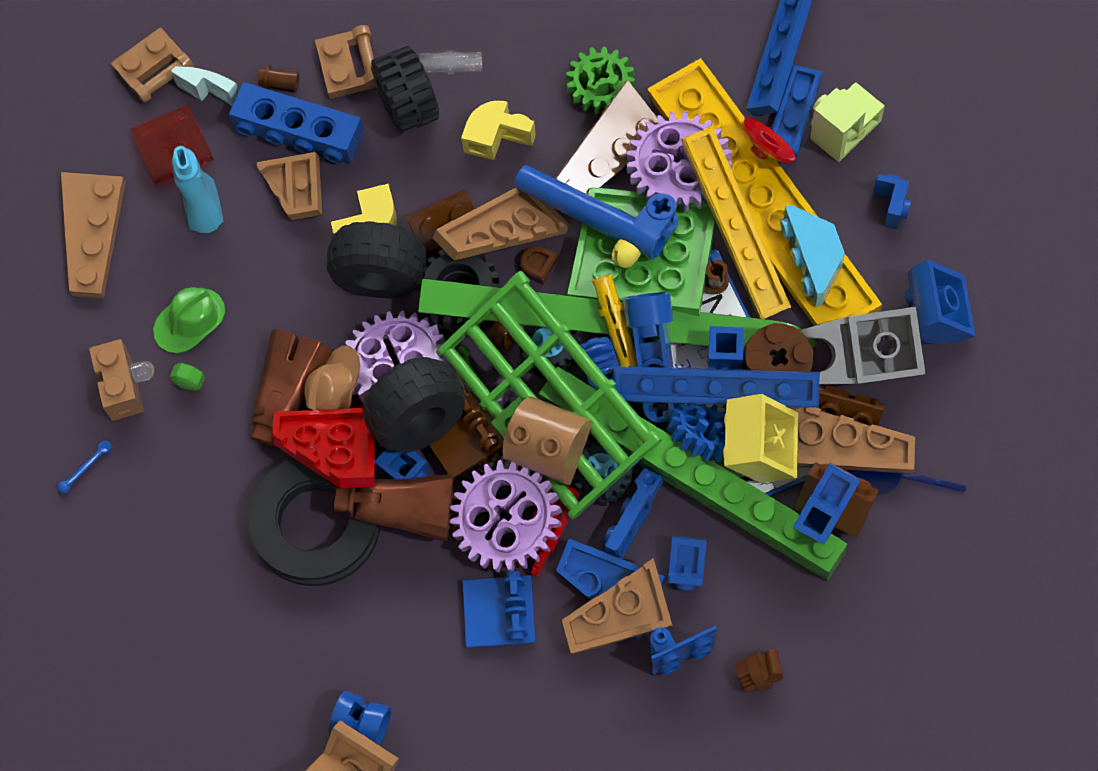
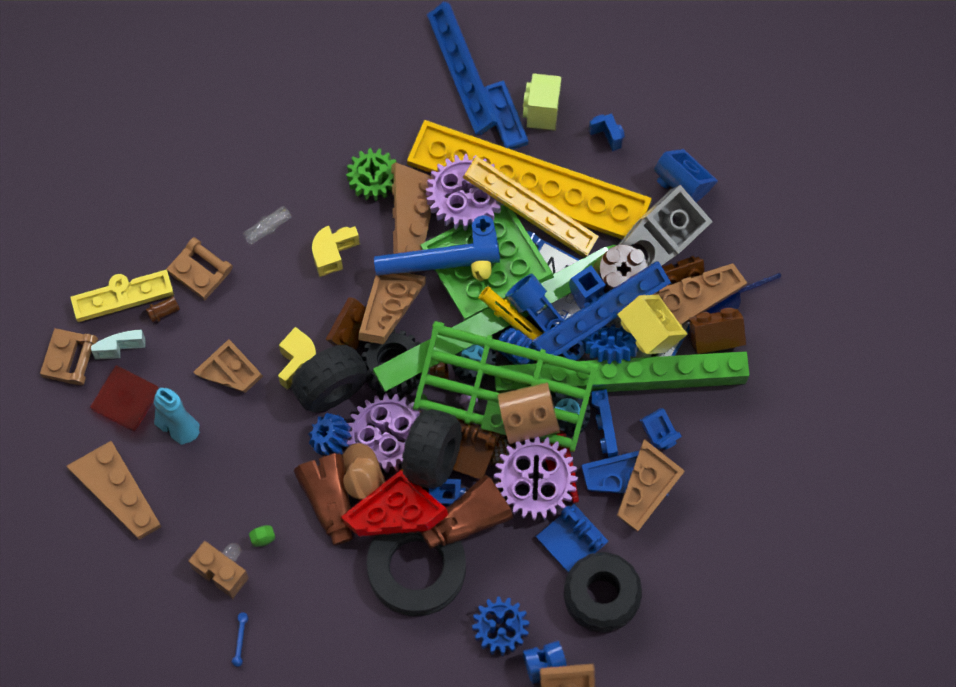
camera: 45 degrees left, 0 degrees up
(188, 319) = (230, 501): bright green piece -> none
(251, 37) = (121, 295): none -> light yellow hinge
(256, 102) = (187, 324): blue brick -> none
(334, 320) = (329, 434): none -> blue gear
(336, 663) = (499, 610): none -> blue gear
(405, 89) = (258, 260): black tyre -> none
(475, 658) = (599, 616): none -> black tyre
(538, 263) = (423, 313): reddish brown tile -> none
(668, 655) = (693, 488): blue hinge -> none
(717, 278) = (545, 246): reddish brown pin -> none
(759, 671) = (752, 461): reddish brown piece -> none
(767, 142) = (510, 145): red dish -> none
(814, 250) = (590, 191): medium azure slope -> none
(827, 503) = (720, 339): blue brick -> none

